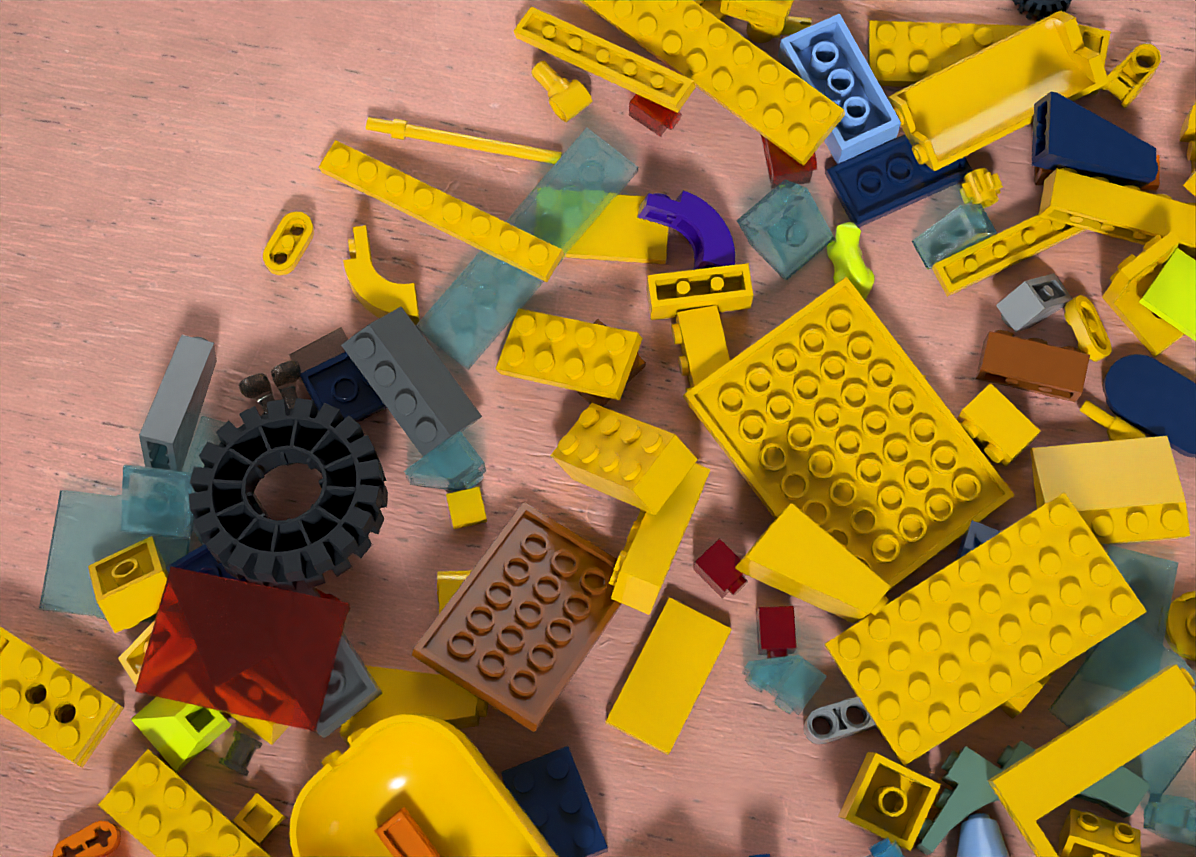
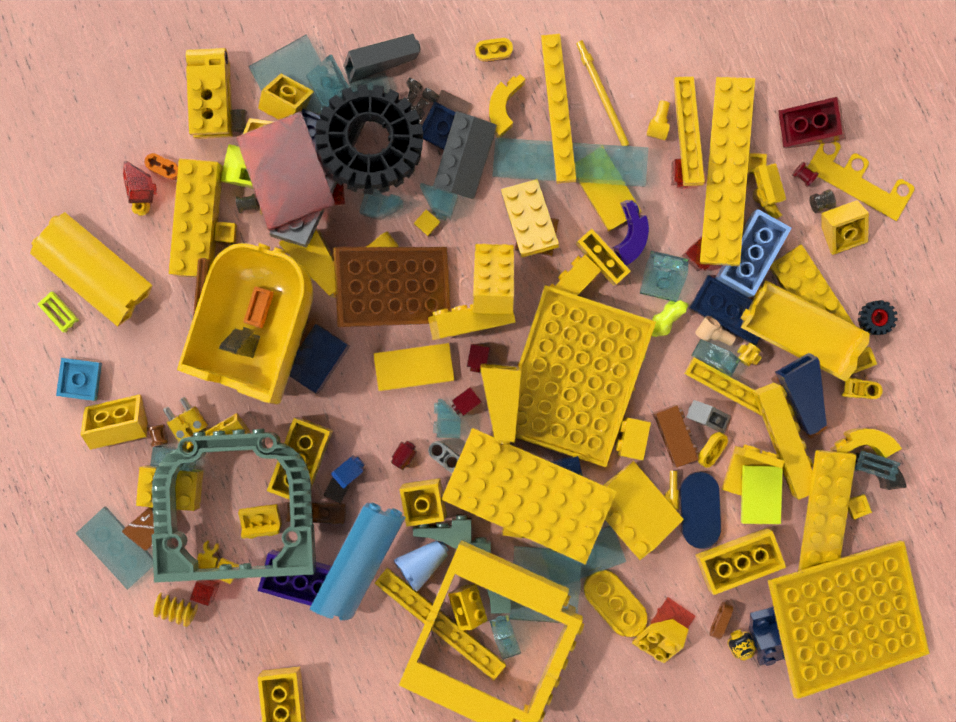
camera: 50 degrees right, 15 degrees up
(108, 678) = (238, 120): none -> clear smoke bush
(391, 557) = (379, 206): none -> clear light blue slope
(794, 782) = (403, 455): none -> dark red brick
(910, 214) = (712, 329): none -> light nougat pin

